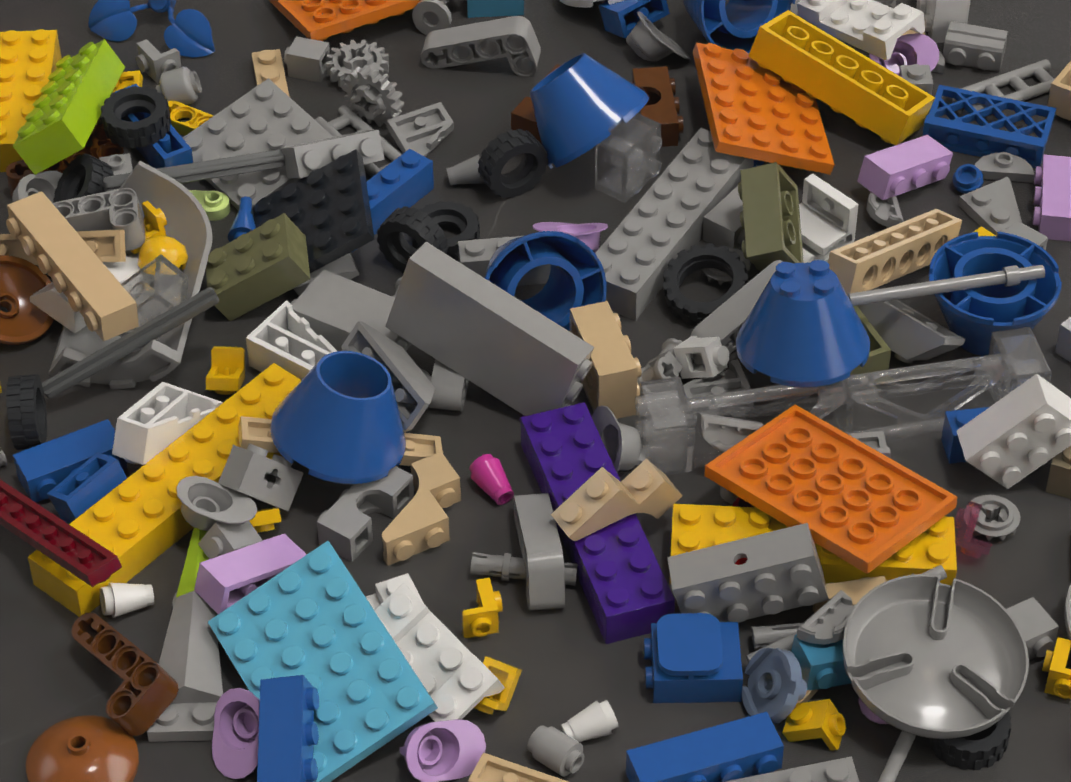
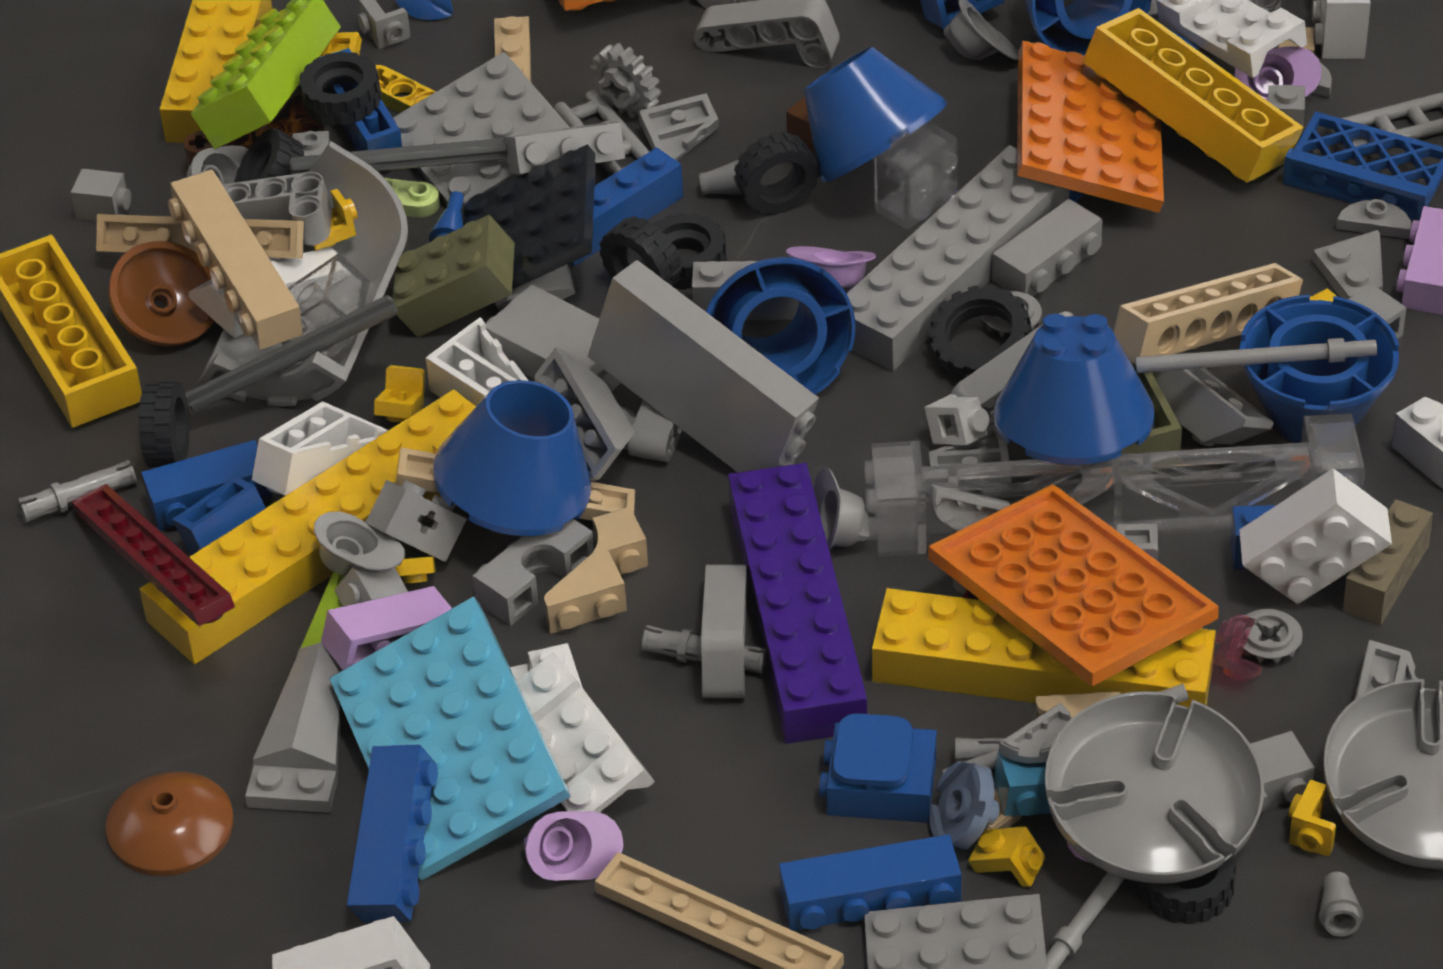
camera: 10 degrees right, 0 degrees up
(124, 598) = (243, 645): white cone -> none
(146, 684) = (248, 743): reddish brown beam -> none
(164, 245) = (352, 246): yellow hair -> none
(180, 85) = (402, 53): light grey head -> none
(236, 733) = (340, 805): lavender piece -> none
(307, 59) = (559, 31): light grey brick -> none
(350, 56) = (617, 30): light grey gear -> none
(485, 618) = (646, 703): yellow bracket -> none
(491, 478) = (686, 543): dark pink cone -> none
(509, 677) = (660, 769): yellow bracket -> none
(556, 750) = (702, 857): light grey brick -> none
(591, 723) = (747, 831): white cone -> none
(607, 500) = (807, 576): tan arch -> none
(614, 370) = (842, 418): tan brick -> none
(661, 104) = (967, 112): reddish brown arch -> none
(663, 365) = (910, 427): light grey connector -> none
(750, 576) = (957, 678): light grey brick -> none
(770, 216) = (1068, 257): olive brick -> none
(825, 219) = (1127, 272): white piece -> none
(884, 211) = (1217, 255): light grey plate -> none
(905, 167) = (1250, 210): lavender brick -> none
(967, 178) = (1328, 229): blue plate -> none
(975, 46) = (1372, 66): light grey brick -> none

